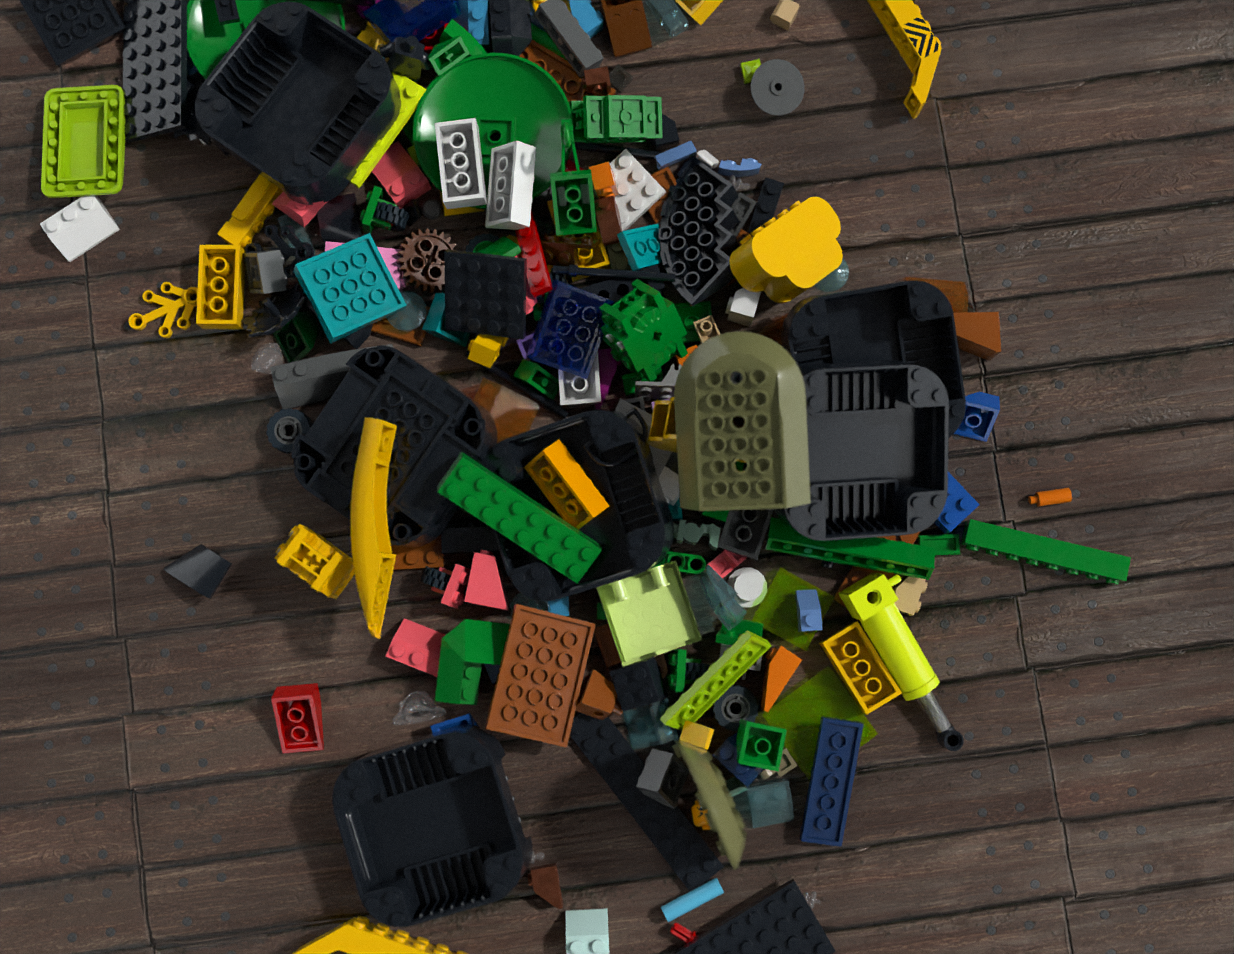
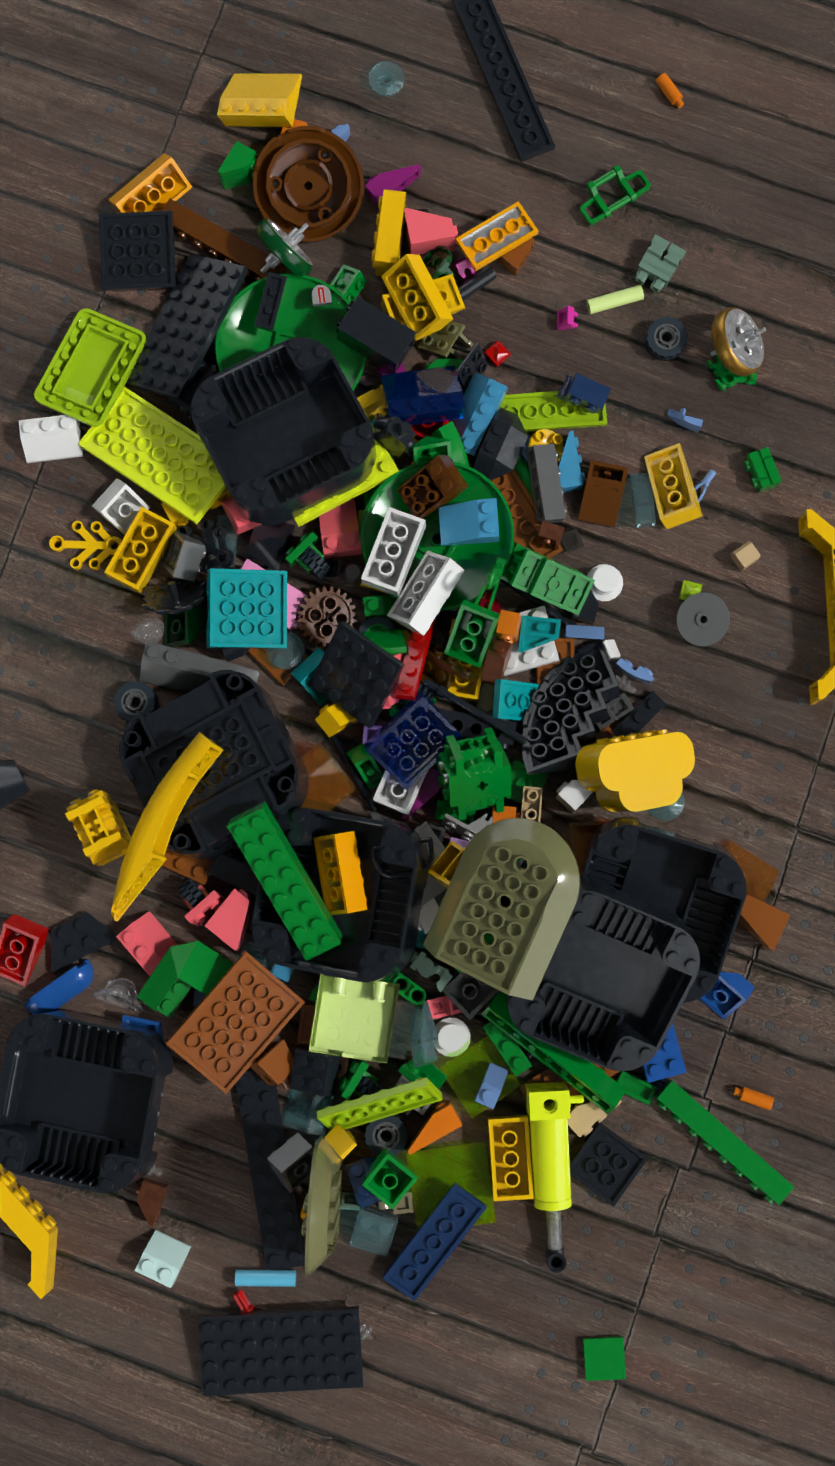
camera: 30 degrees right, 0 degrees up
(178, 256) = (119, 505): none -> white slope
(190, 191) = (156, 455): none -> neon yellow plate
(351, 679) = (78, 939): none -> black wing
(360, 733) = (62, 989): none -> blue brick
(465, 86) = (432, 486): none -> reddish brown slope
(472, 226) = (377, 606): none -> green slope
(518, 102) = (469, 522): none -> dark azure slope
(632, 174) = (537, 632): none -> teal wing
(673, 100) = (607, 582): none -> white piece
(805, 569) = (508, 1049): none -> green brick
(950, 627) = (606, 1164): none -> black plate
(1041, 805) = (604, 1358): none -> green tile

